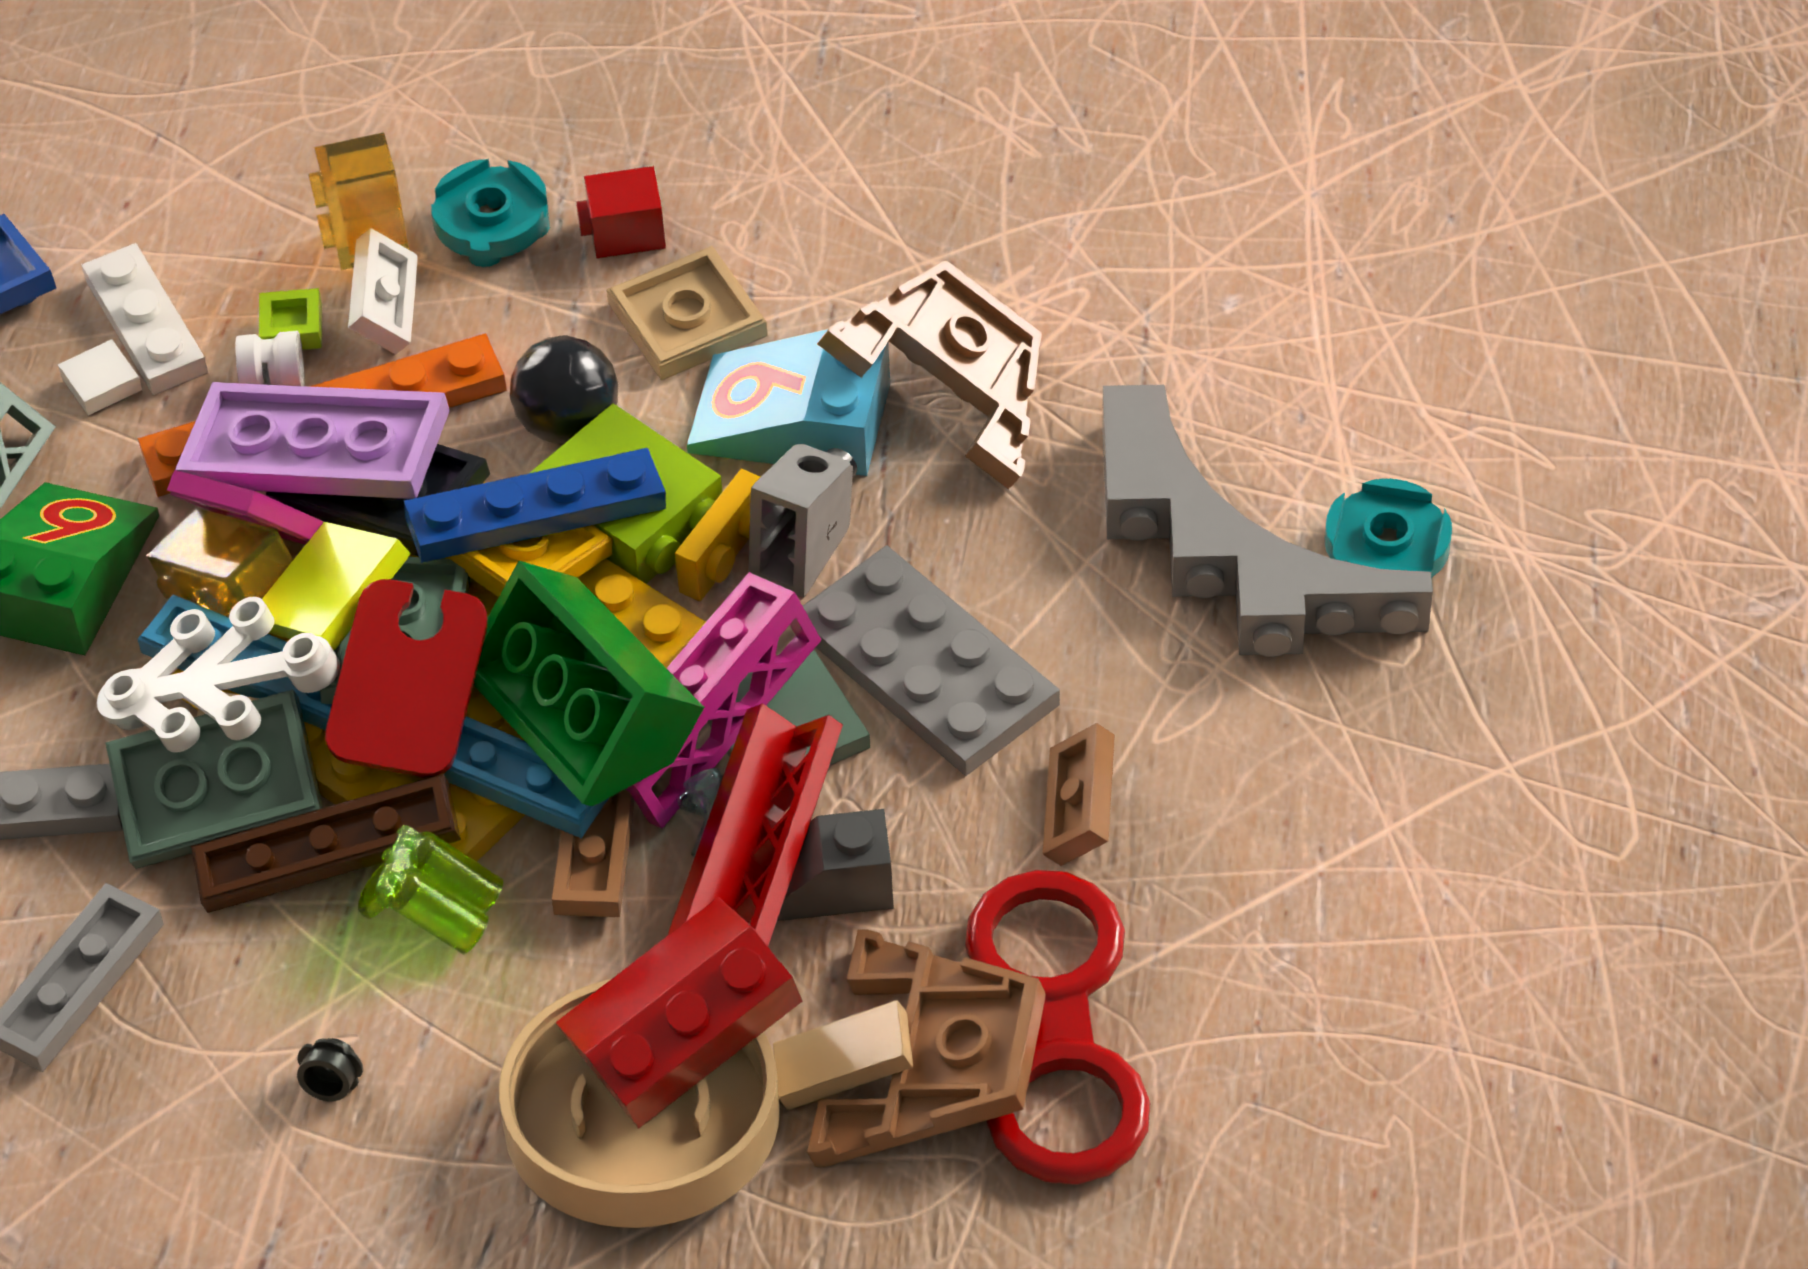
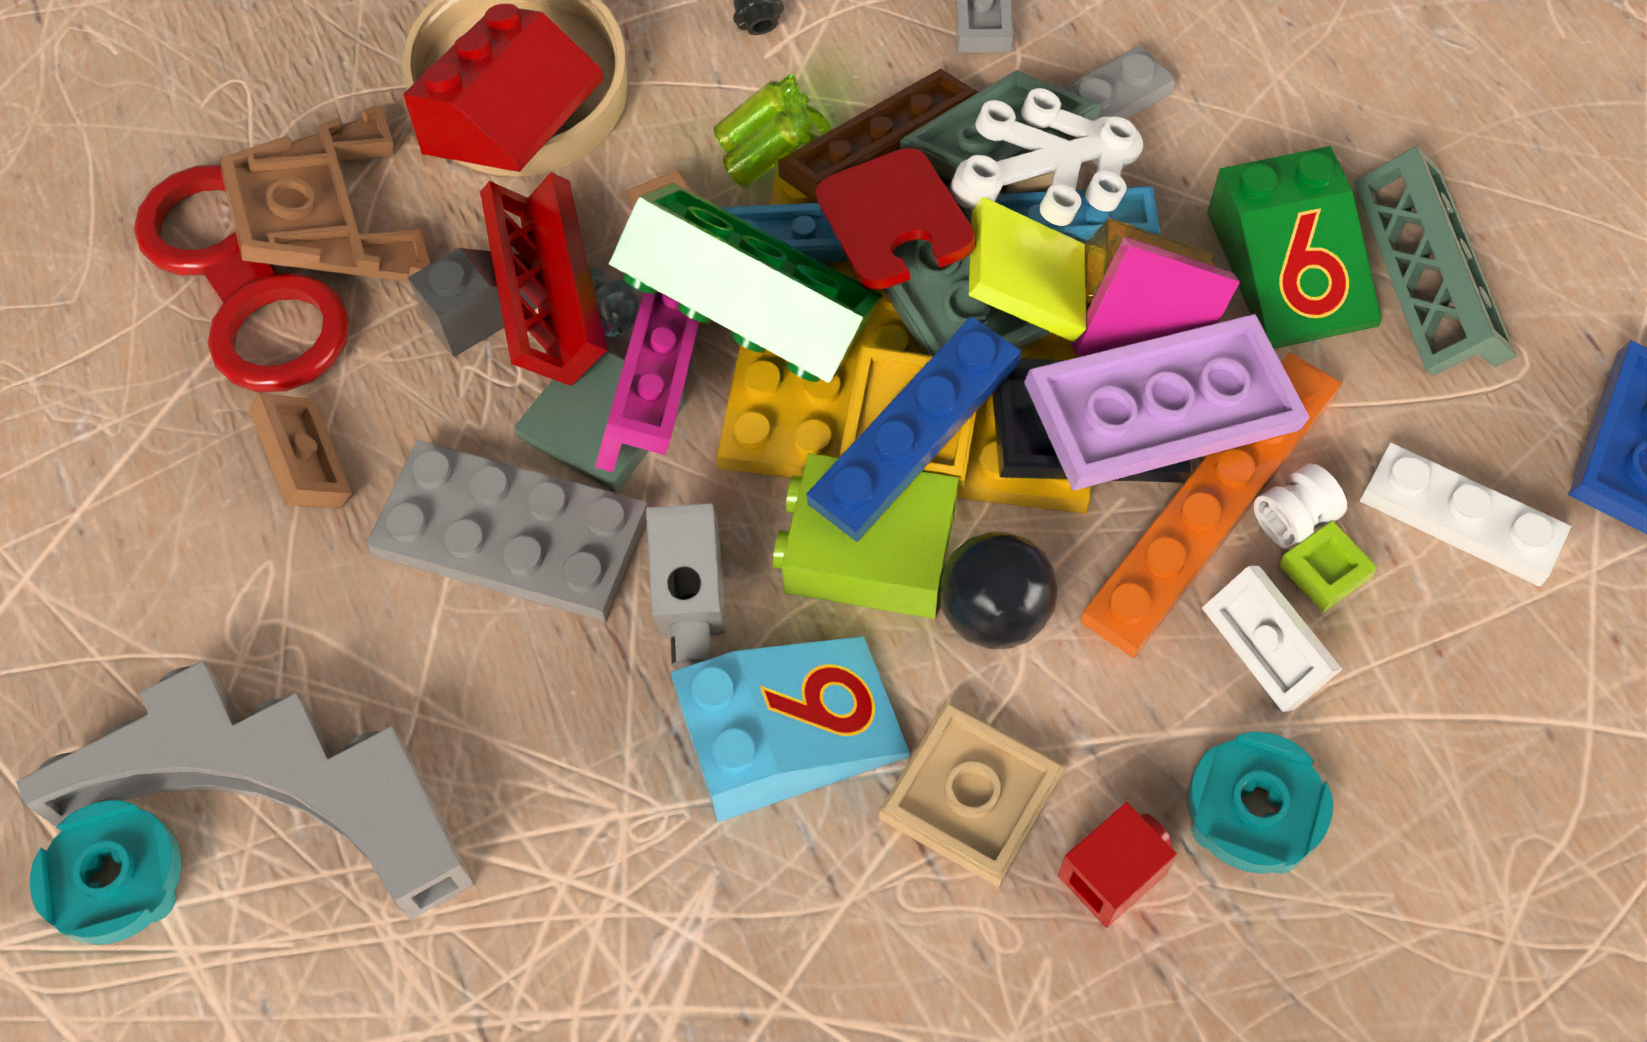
camera: 150 degrees right, 10 degrees up
(100, 377) = (1440, 432): white tile -> none
(359, 194) = (1370, 694): clear yellow brick -> none
(716, 539) = (754, 515): yellow plate -> none
(842, 1055) = (381, 165): tan tile -> none
(964, 342) = (652, 859): wing -> none

